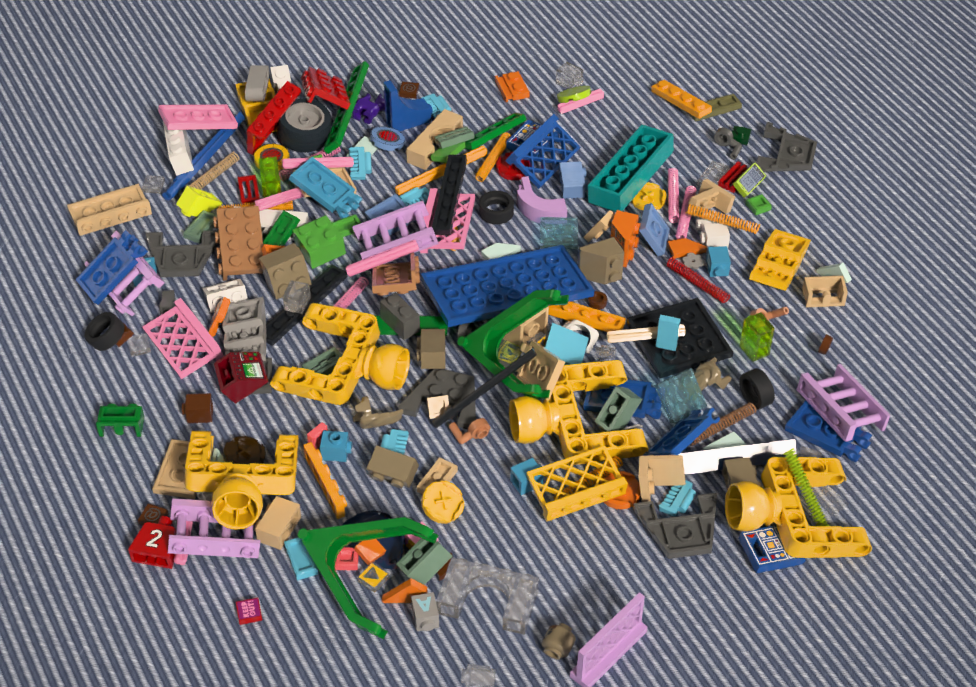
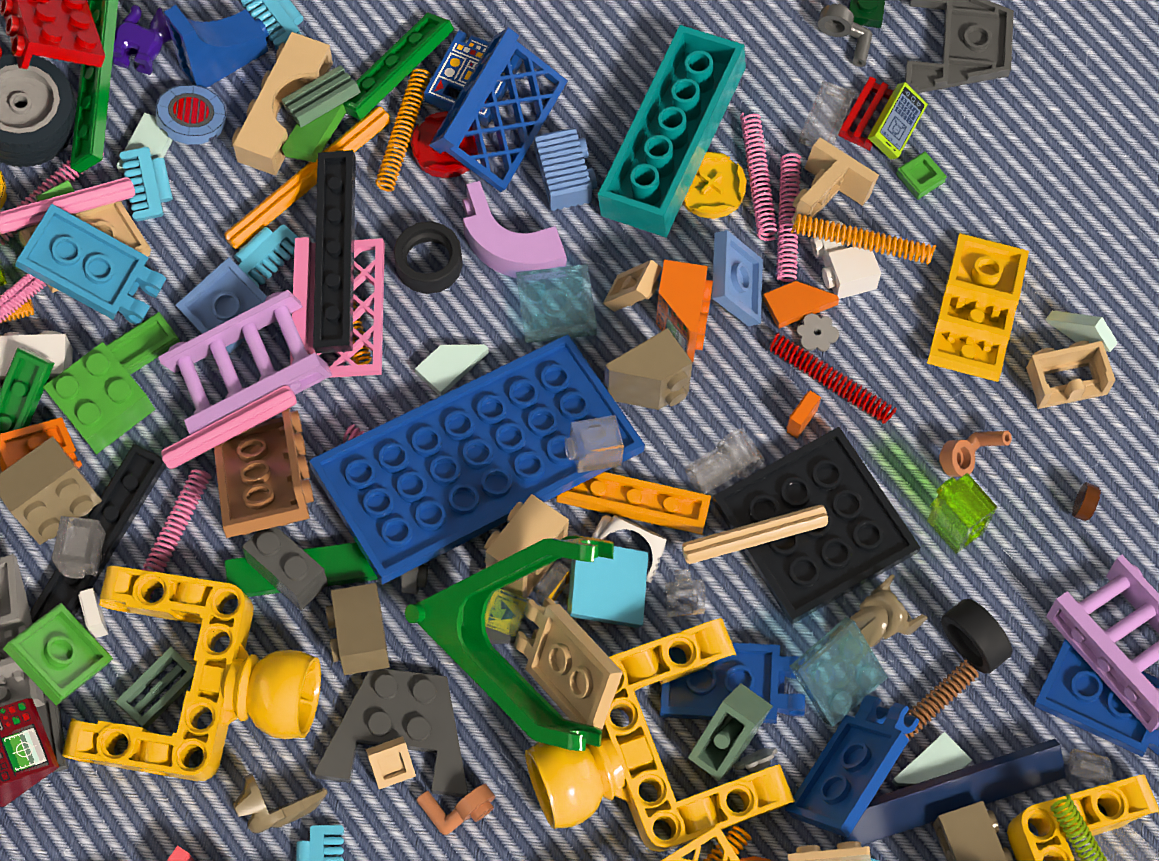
camera: 10 degrees left, 20 degrees up
(277, 338) = (58, 654): none -> bright green tile
(297, 328) = (93, 613): none -> white tile
(452, 411) = (420, 773): black bar -> none
(568, 282) = (595, 444): none -> clear brick
(598, 301) = (654, 456): reddish brown tile -> none
(638, 304) = (733, 457): none -> clear piece
(668, 332) = (800, 541): medium azure tile -> none
(680, 291) = (803, 414): none -> orange tile
(718, 261) = (865, 332): dark azure brick -> none

